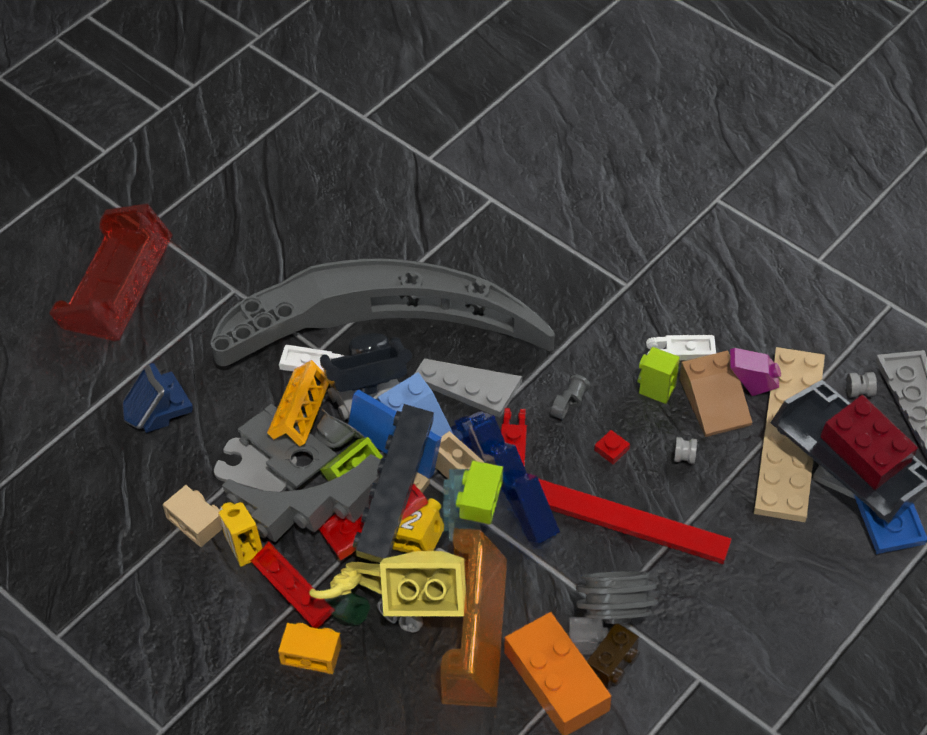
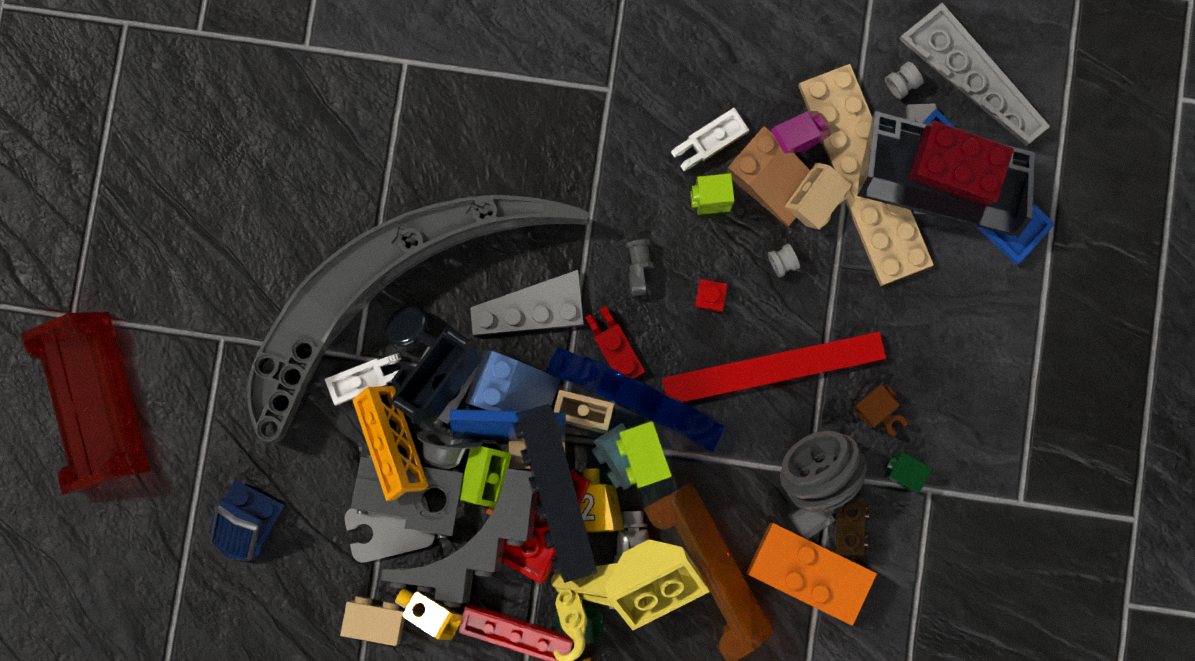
camera: 30 degrees left, 30 degrees up
(688, 647) = (907, 472): none -> dark green brick
(695, 589) = (877, 408): none -> reddish brown brick
(741, 420) = (818, 196): none -> tan brick

